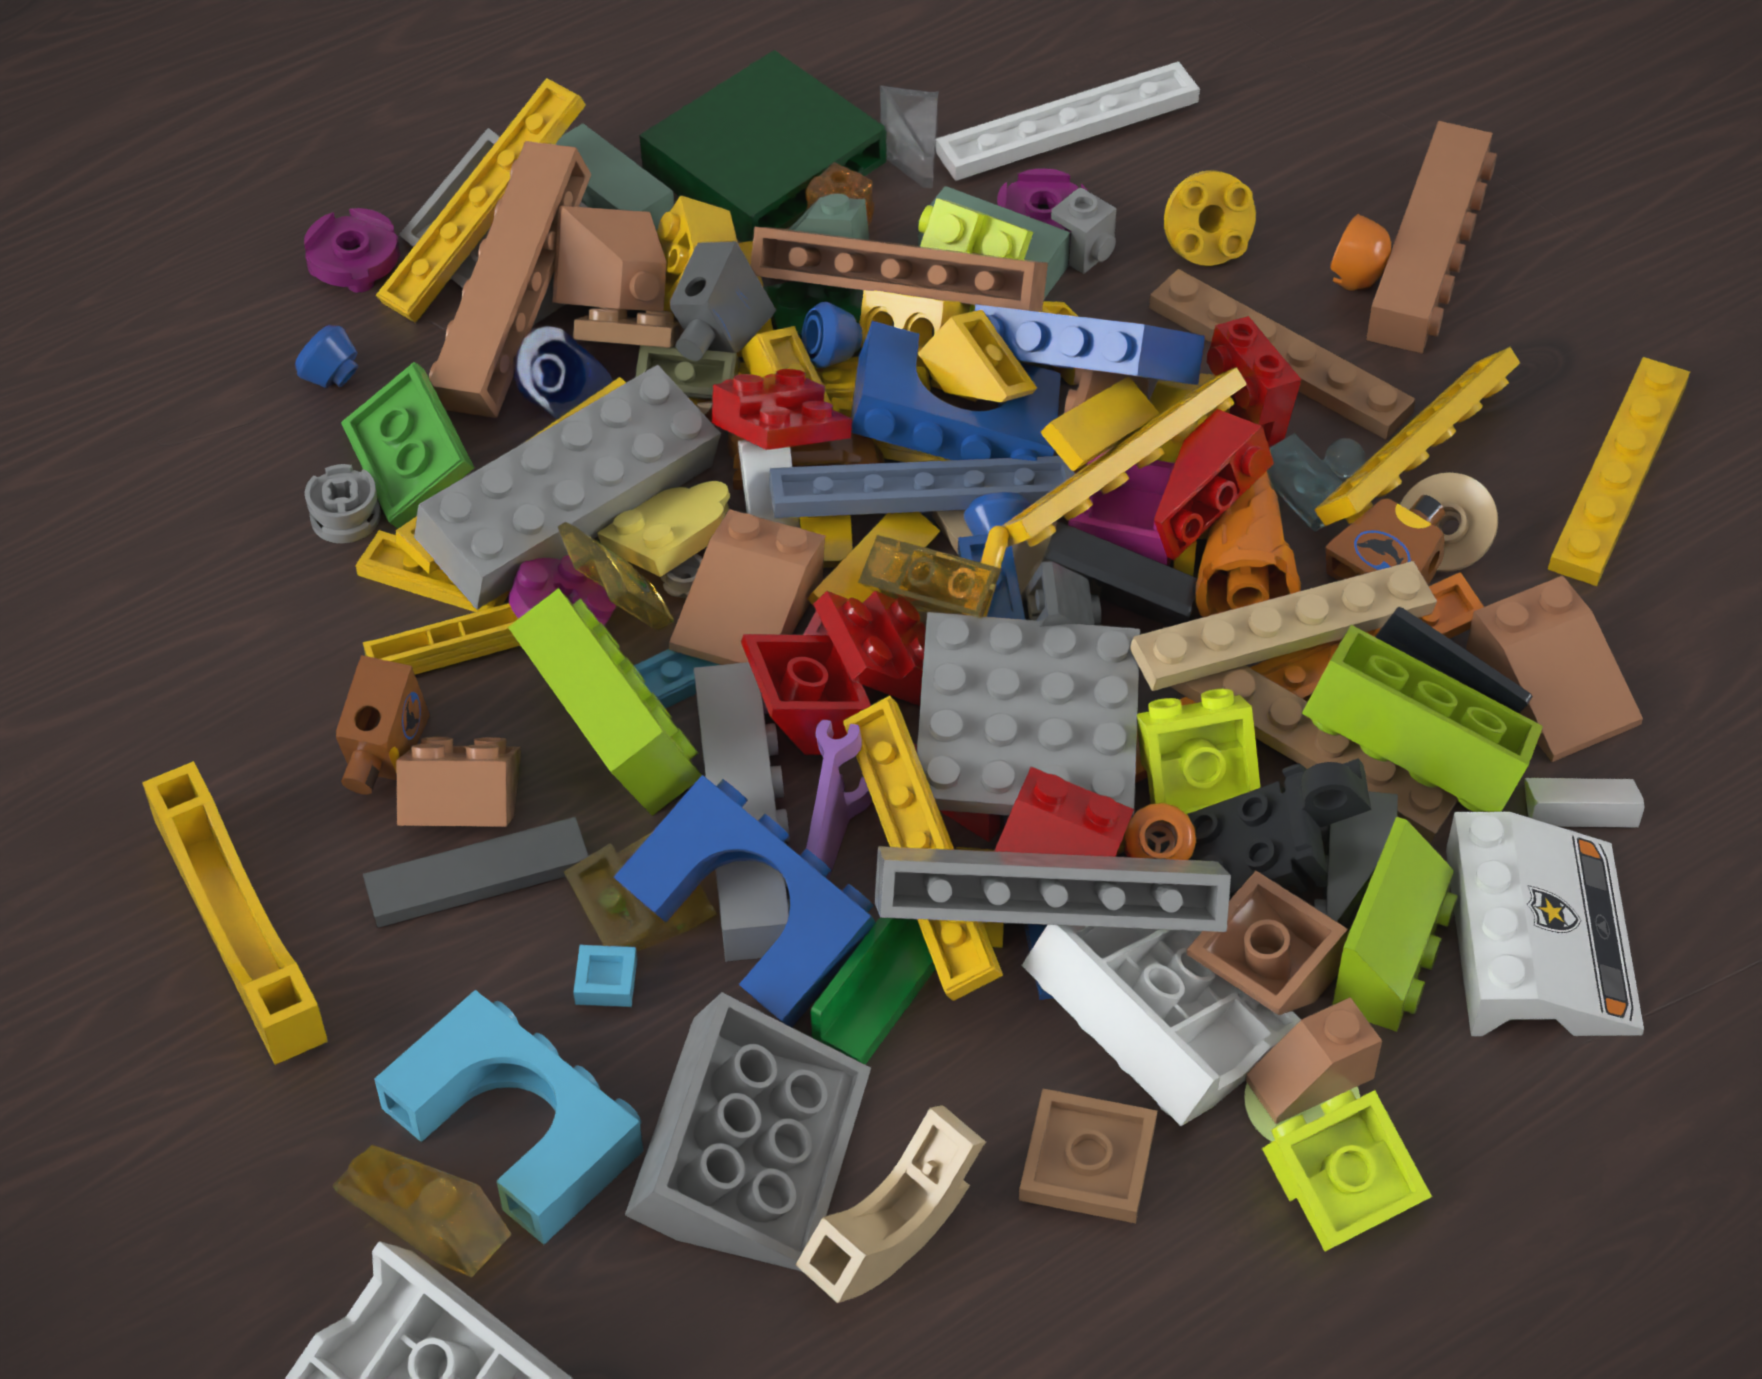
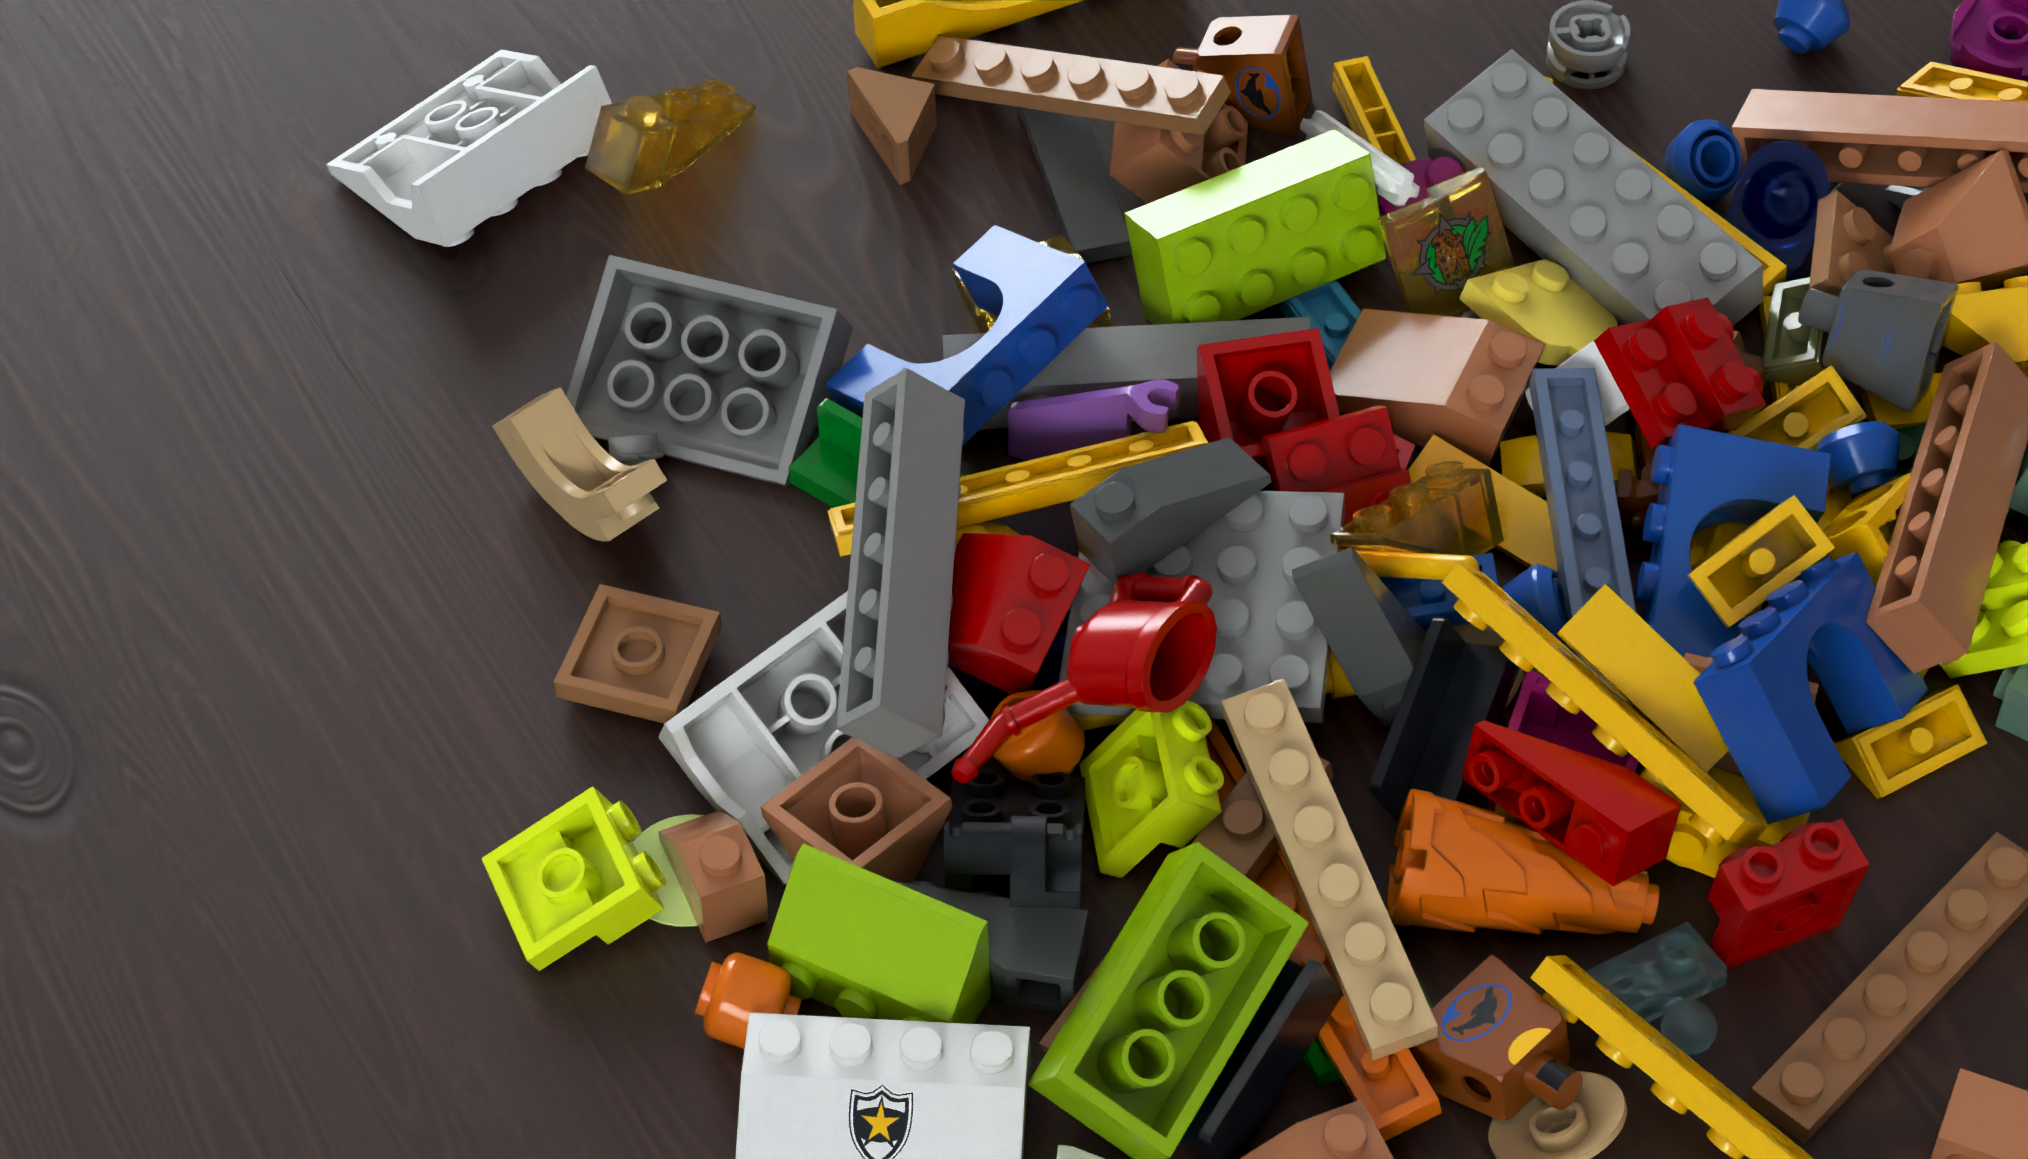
camera: 95 degrees right, 0 degrees up
(406, 850) = (1074, 84): none -> medium nougat plate
(407, 444) = (1670, 84): bright green tile -> none
(411, 1005) = (895, 116): none -> medium nougat slope
(487, 1049) = (830, 149): medium azure arch -> none
(495, 427) = (1704, 159): none -> blue cone
(497, 641) = (1390, 178): none -> white axle
(605, 975) = (921, 265): medium azure plate -> none
(847, 1184) = (634, 448): none -> light grey plate
(966, 719) = (1161, 505): none -> dark grey slope
(1127, 729) = (1132, 653): none -> red piece
(1443, 1027) = (740, 988): none -> orange head

